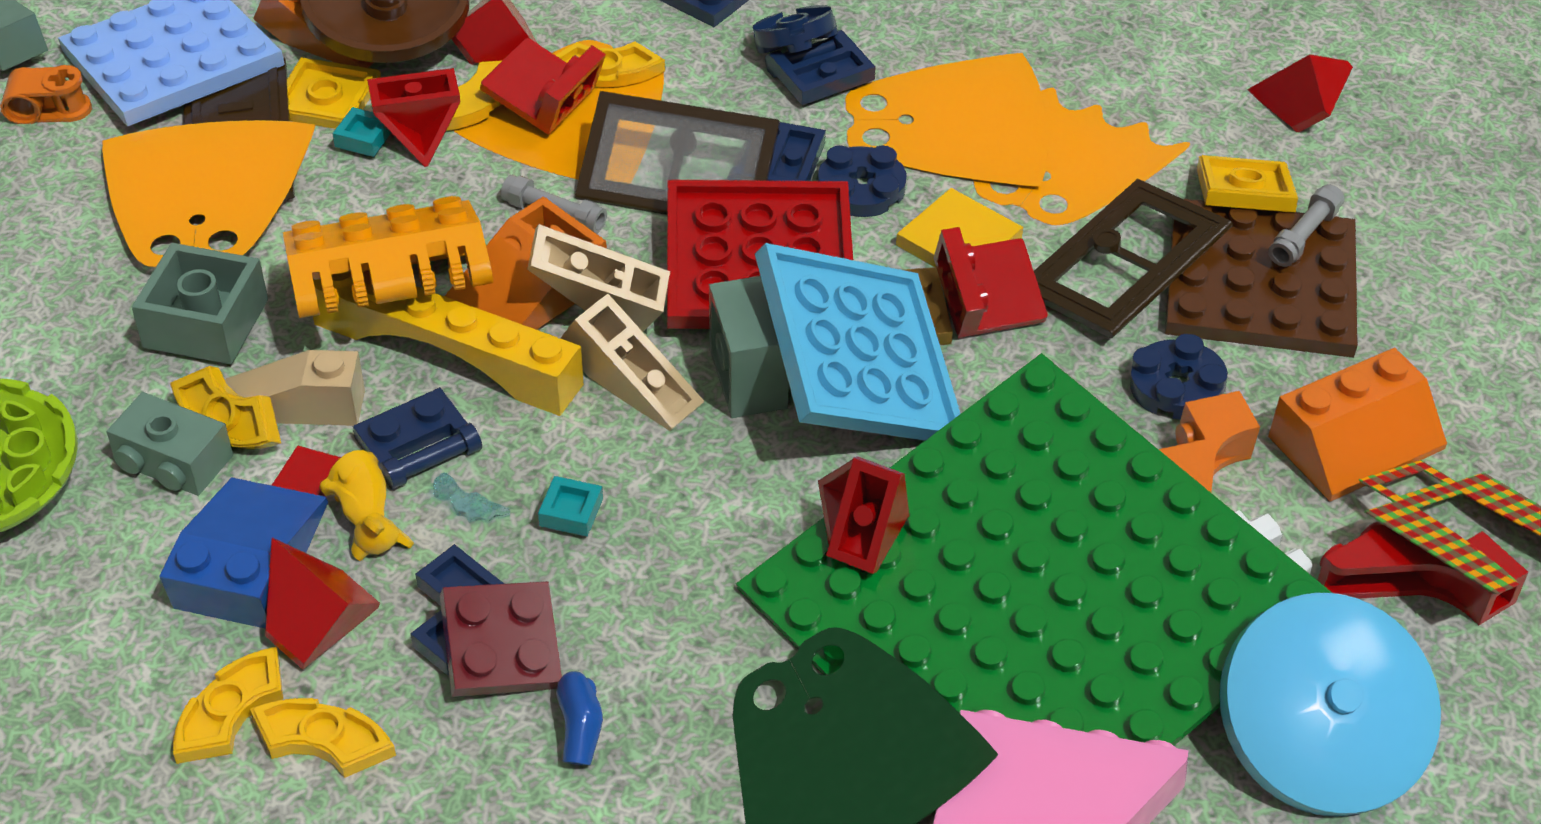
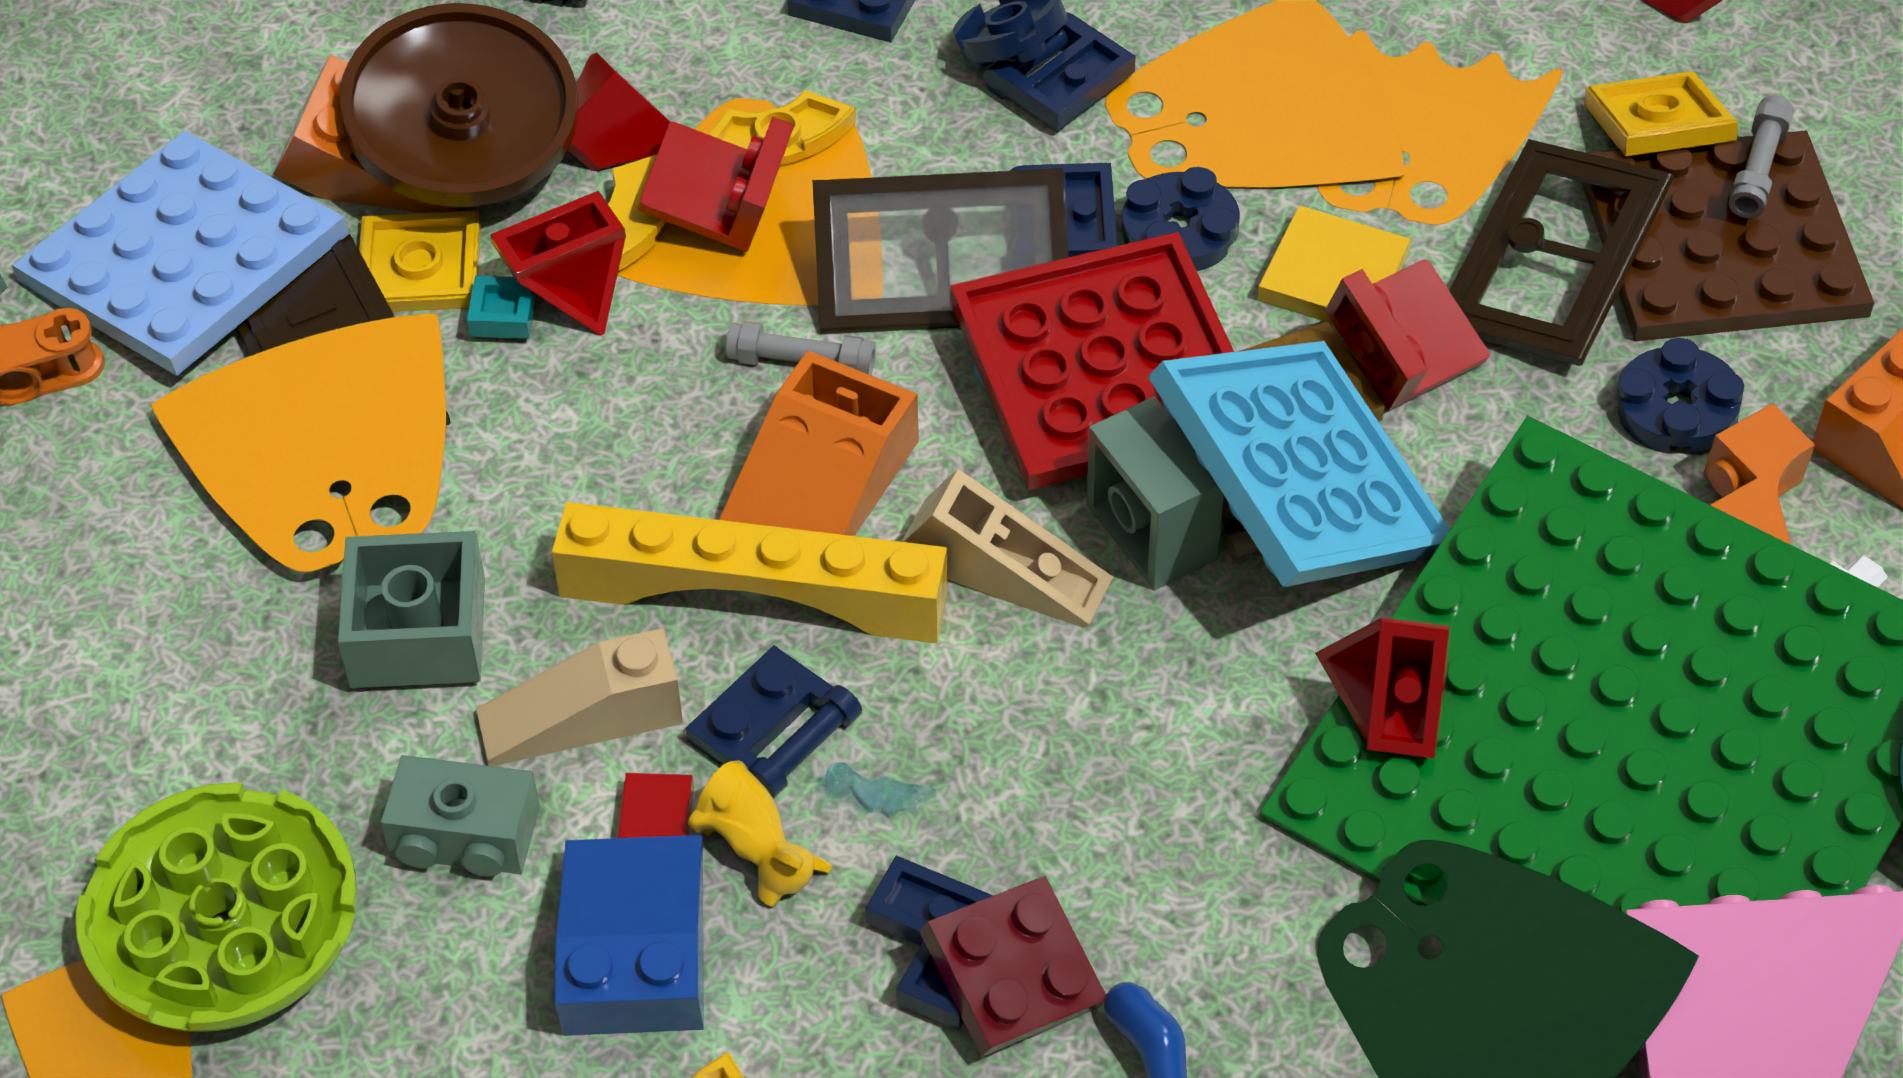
camera: 15 degrees left, 5 degrees up
(247, 419) = (485, 737): yellow tile -> none
(311, 604) = (753, 986): red slope -> none
(388, 249) = (651, 471): light orange slope -> none
(570, 506) = (1014, 764): teal plate -> none
(590, 272) = (929, 444): tan slope -> none

